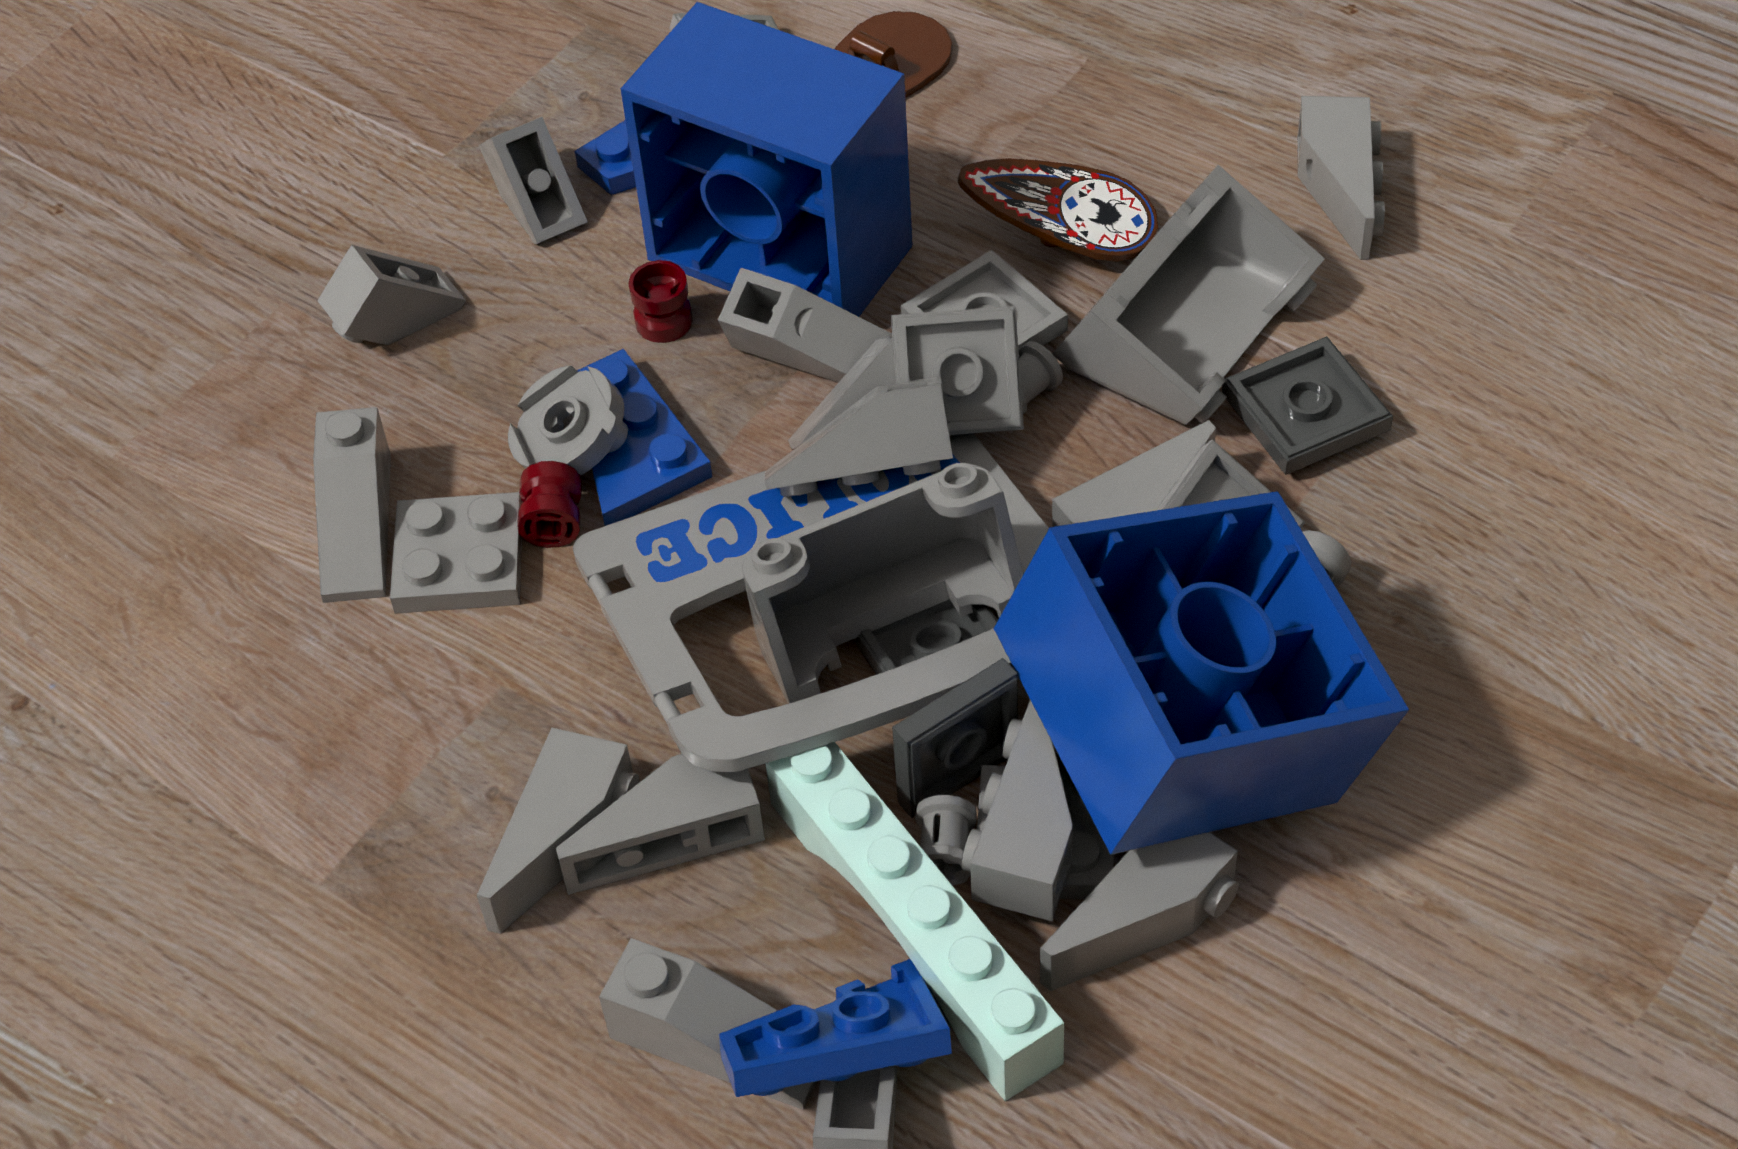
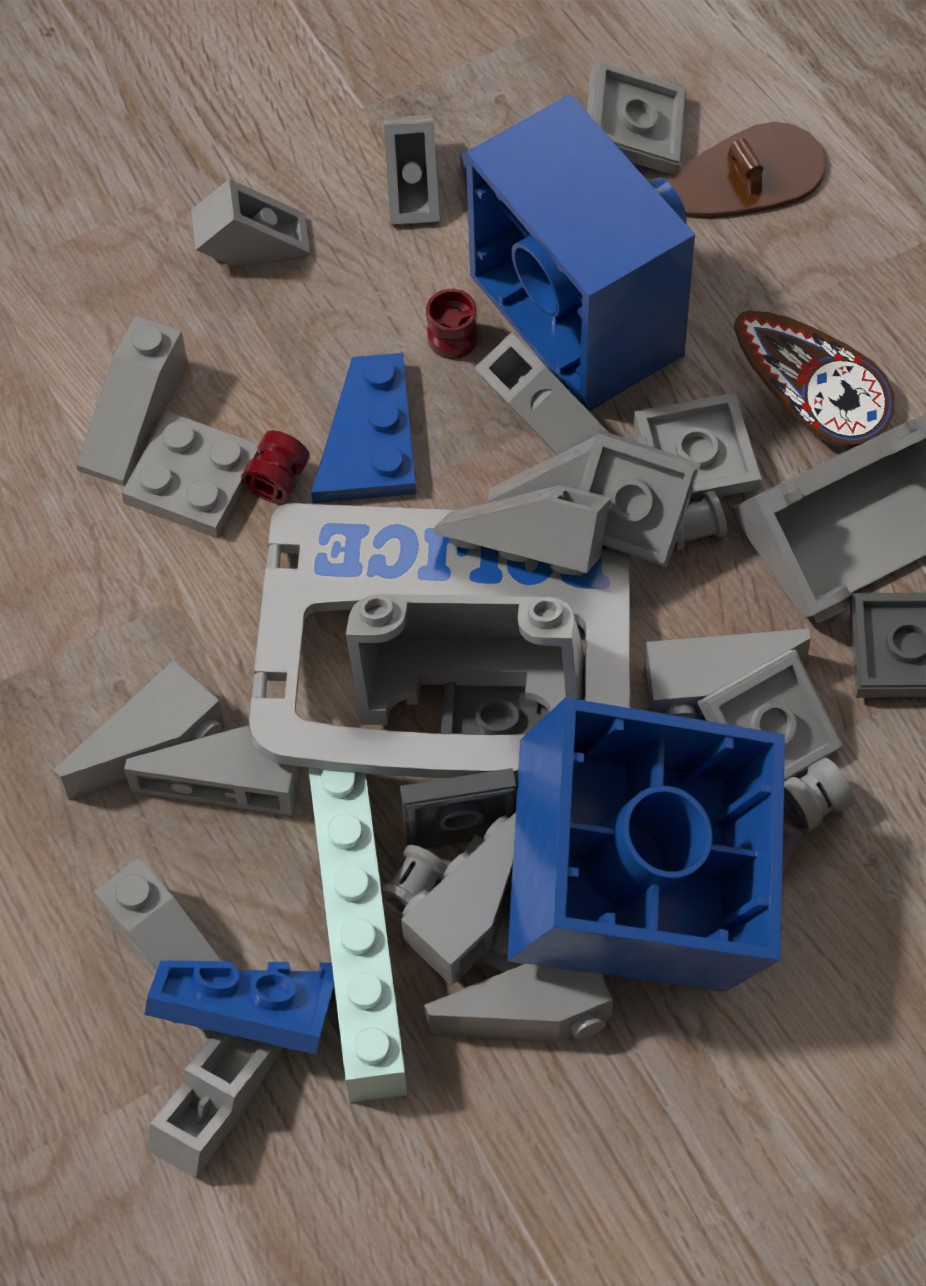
camera: 25 degrees right, 10 degrees up
(595, 426) = (338, 418): light grey plate -> none

